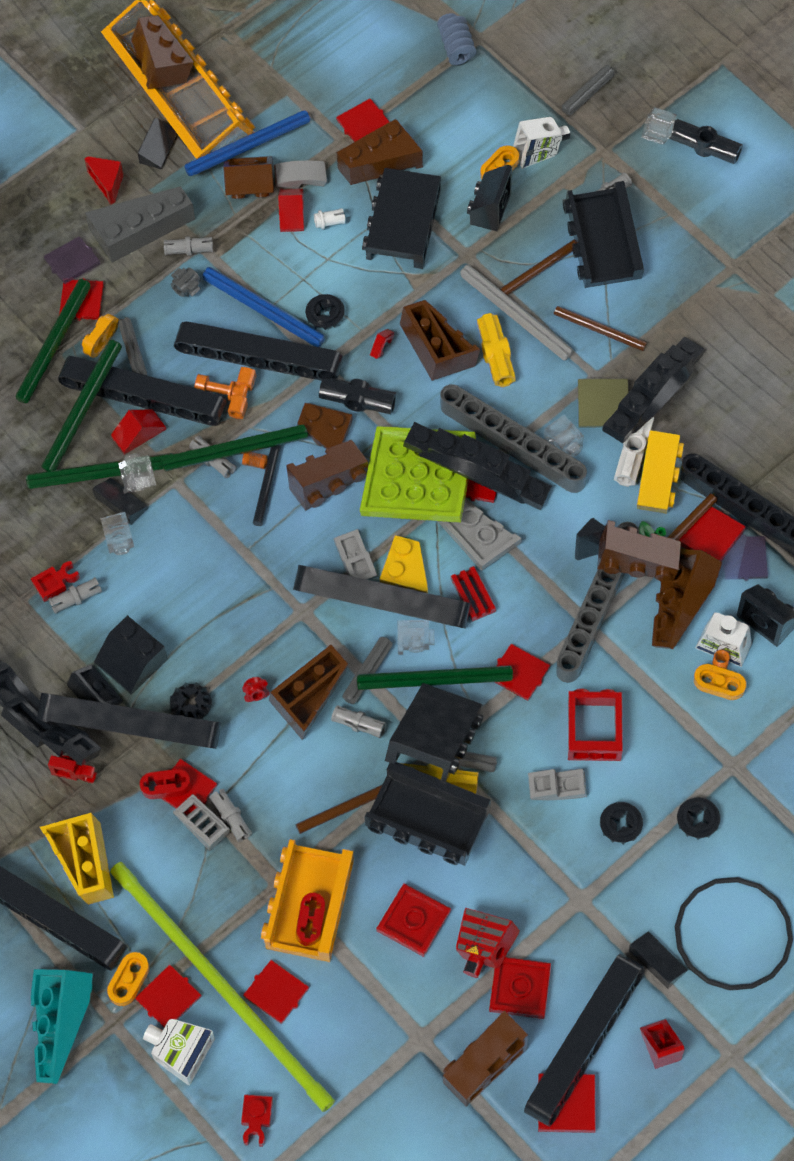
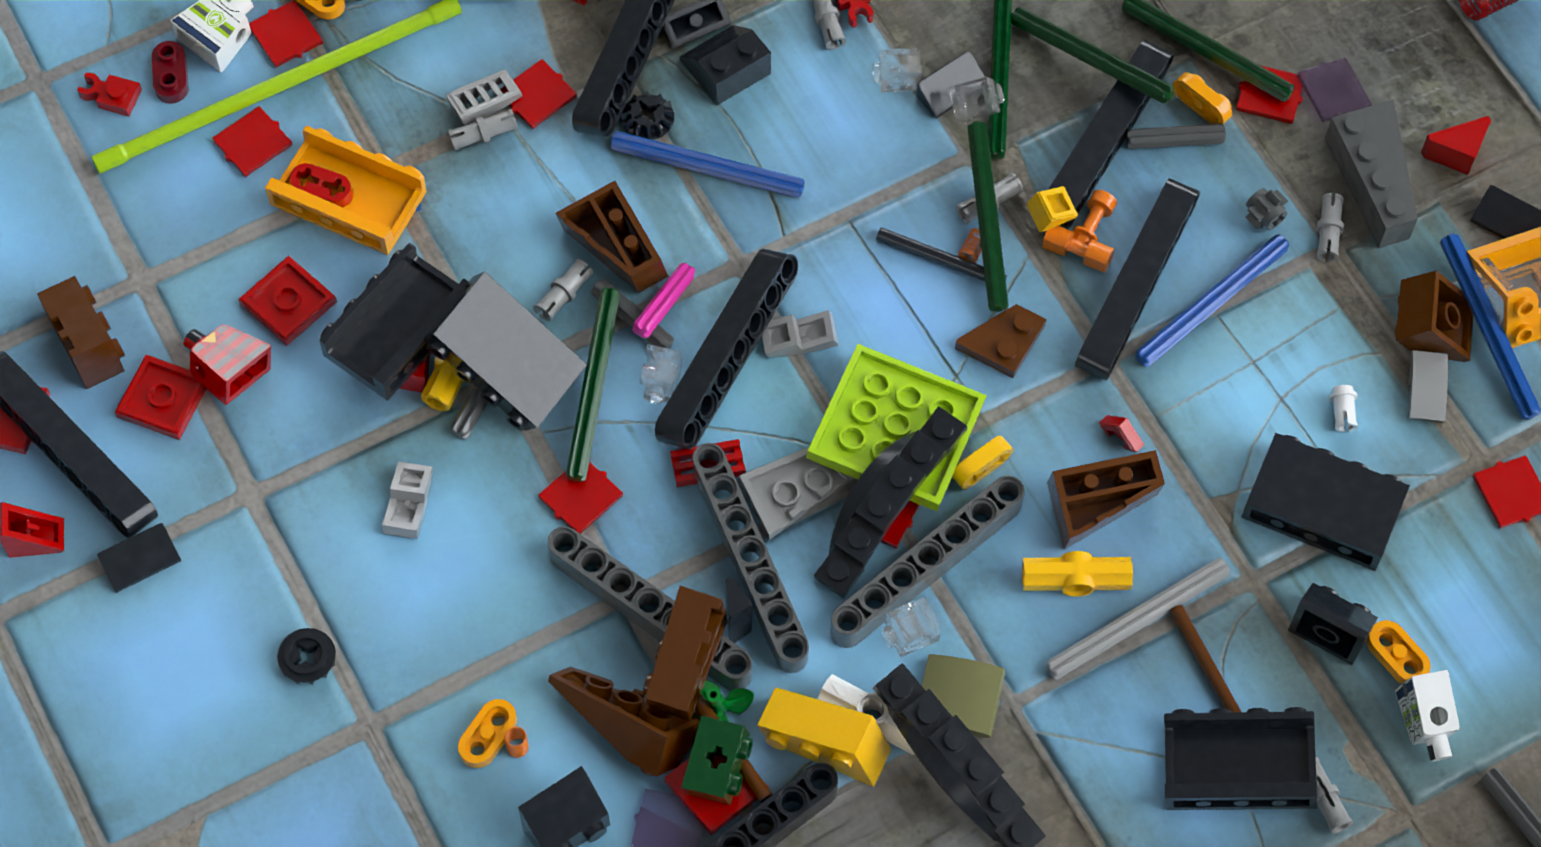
camera: 100 degrees right, 0 degrees up
(136, 429) = (1052, 123): red slope -> none
(165, 777) = (550, 68): red beam -> none
(221, 407) = (1051, 208): none -> yellow slope
(224, 652) = (707, 164): none -> blue axle
(225, 1075) = (170, 69): none -> dark red plate
(255, 689) = (640, 184): red plate -> none
(291, 210) = (1372, 363): red slope -> none
(327, 474) = (922, 316): reddish brown wedge -> none
(328, 303) = (1194, 361): black gear -> none
(338, 810) = (453, 239): reddish brown bar -> none
(355, 647) = (663, 300): none -> dark pink axle
(357, 395) = (1042, 383): black piece -> none
(383, 148) = (1443, 491): reddish brown wedge -> none
(405, 565) = (770, 391): yellow wing -> none
(423, 415) = (982, 462): none -> yellow beam
(534, 551) = (750, 573): none -> dark grey beam
(595, 749) = (430, 568): red window -> none
(600, 328) = (1087, 727): reddish brown bar -> none
(616, 812) = (331, 546): black gear -> none
(703, 524) = (711, 742): none -> dark green brick
(716, 983) = (161, 726): black piece -> none
(726, 634) = (544, 750): white torso -> none

